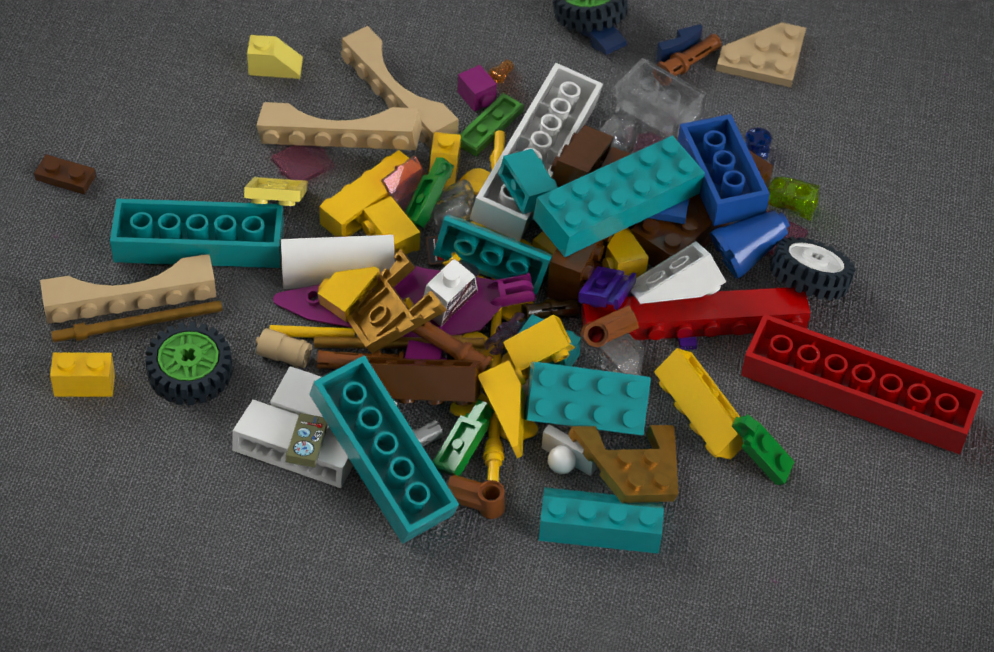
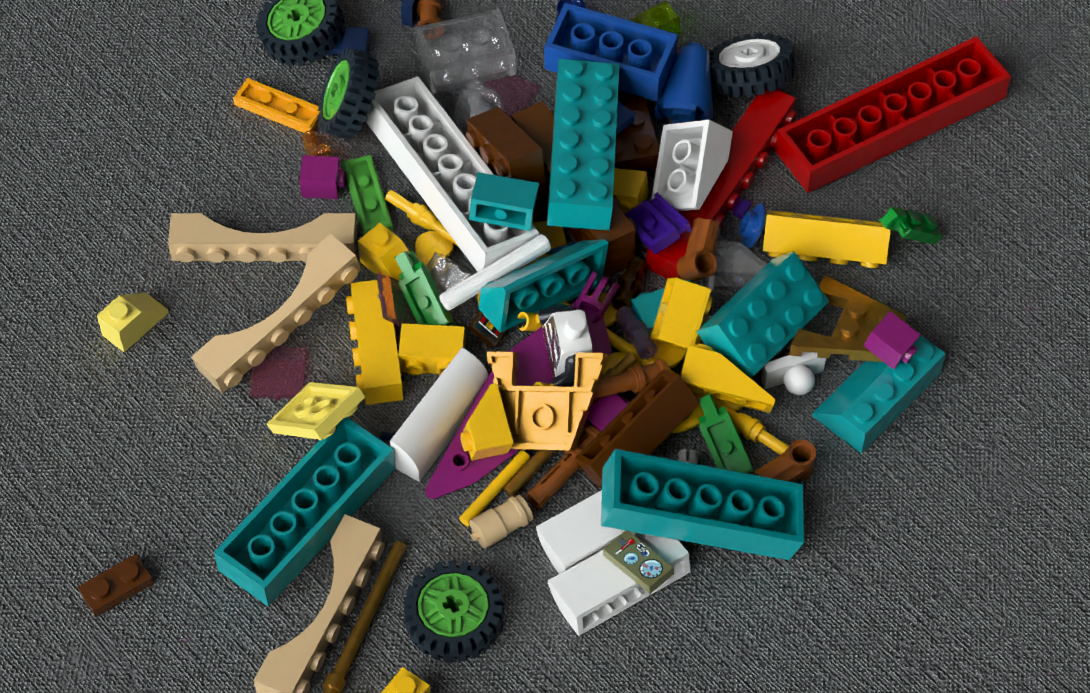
camera: 50 degrees left, 5 degrees up
(490, 221) = (495, 271): none -> white axle
(518, 35) = (277, 106): none -> light orange tile
(542, 56) = (348, 93): none -> black wheel
(629, 484) = (893, 341): none -> magenta brick
(666, 350) = (752, 225): none -> blue piece

